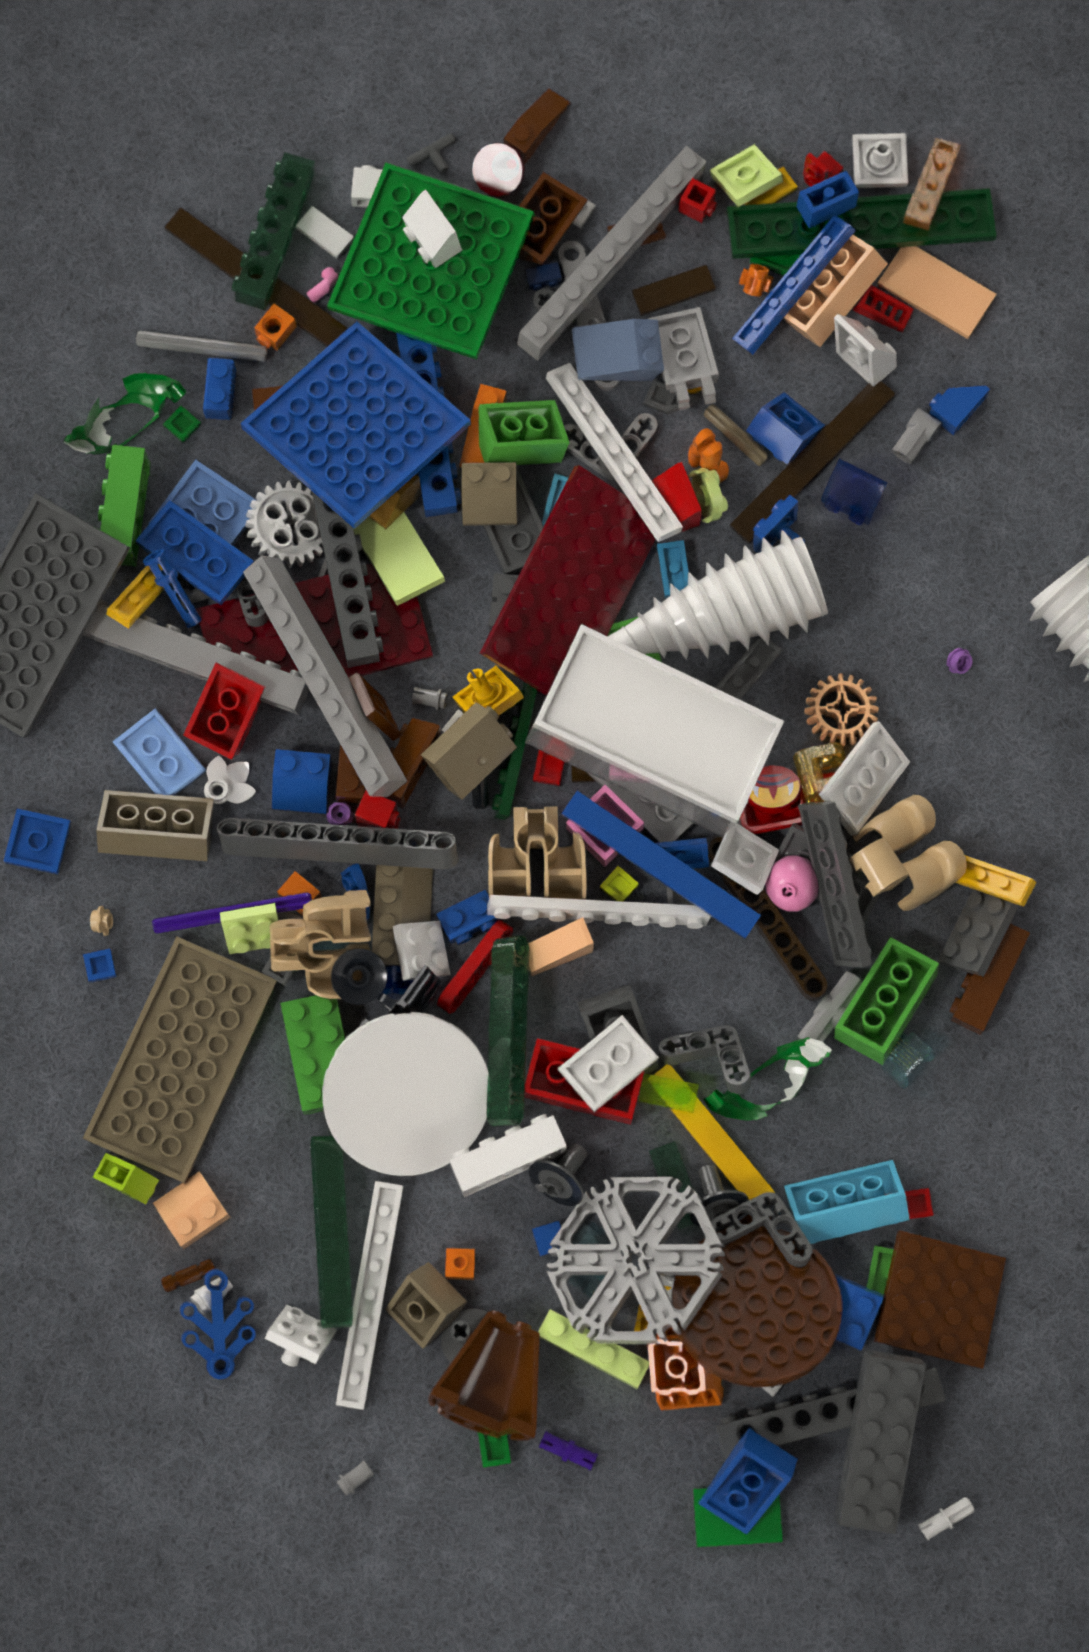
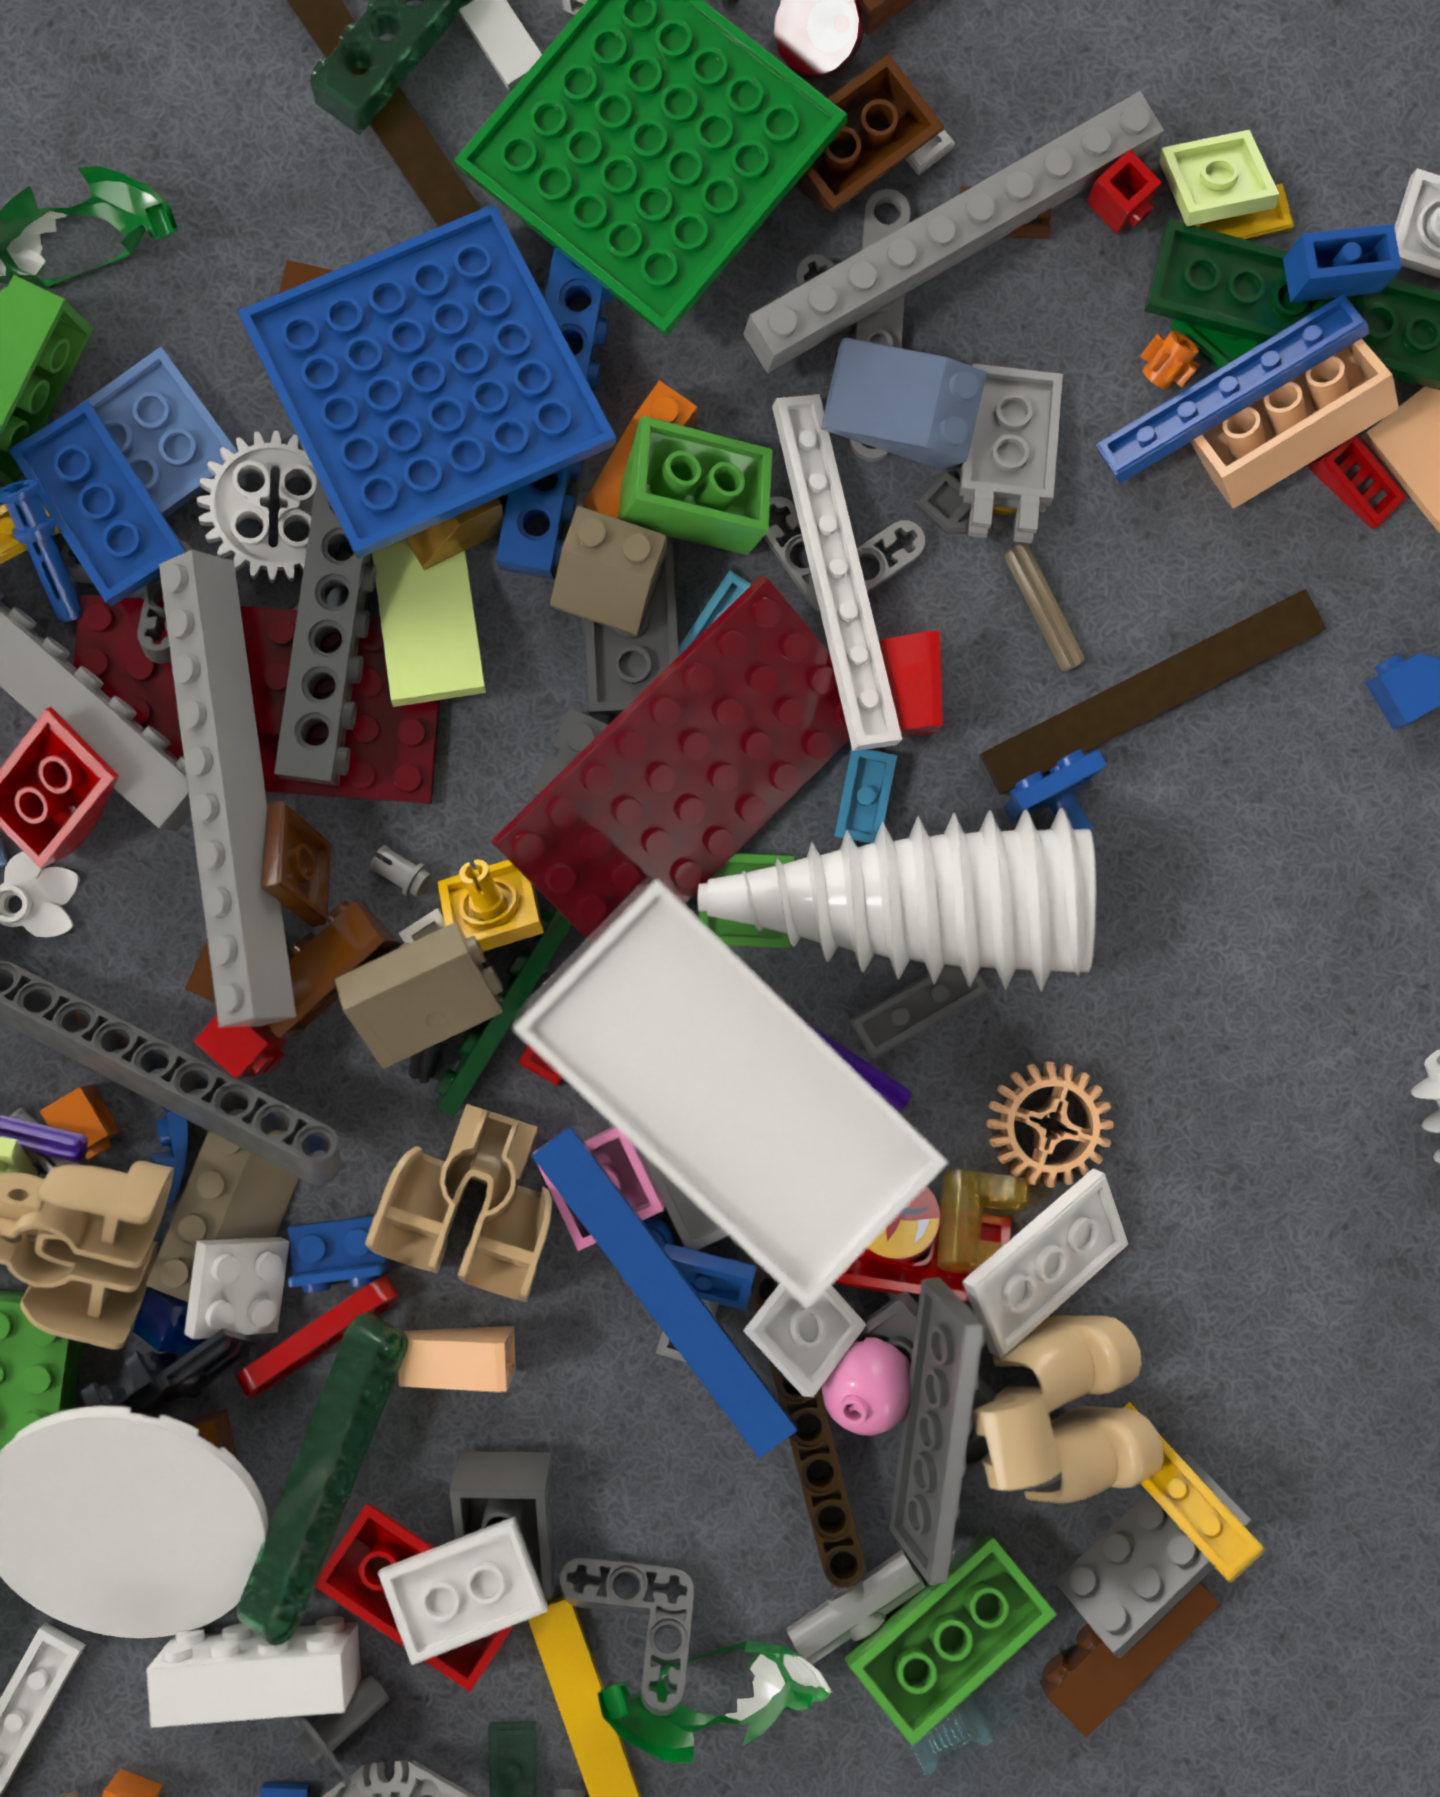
camera: 15 degrees right, 10 degrees up
(182, 424) = (164, 279): green tile -> none
(201, 346) = (239, 160): light grey axle -> none
(219, 388) = (239, 241): blue brick -> none
(274, 317) = (364, 151): orange brick -> none
(301, 781) = (146, 937): blue slope -> none
(324, 286) = (462, 131): bright pink arm -> none
(340, 807) = (181, 1014): medium lavender plate -> none
(368, 986) = (98, 1335): black dish -> none
(431, 231) = (661, 86): white slope -> none
(543, 276) = (828, 234): dark blue piece -> none
(608, 911) = (521, 1319): white plate -> none
(619, 885) = (593, 1284): neon yellow plate -> none
(668, 1093) = (550, 1658): clear neon green plate -> none
(673, 290) = (1030, 330): dark brown tile -> none
(708, 453) = (990, 632): orange piece -> none
(708, 493) = (964, 695): yellowish green plate -> none
(784, 427) = (1127, 624): blue slope -> none
(820, 168) = (1342, 206): red bracket -> none
(853, 492) = (1201, 775): clear blue slope -> none
(863, 349) = (1303, 540): white slope -> none
(918, 432) = (1340, 707): light grey piece -> none
(959, 661) = (1268, 1108): medium lavender plate -> none

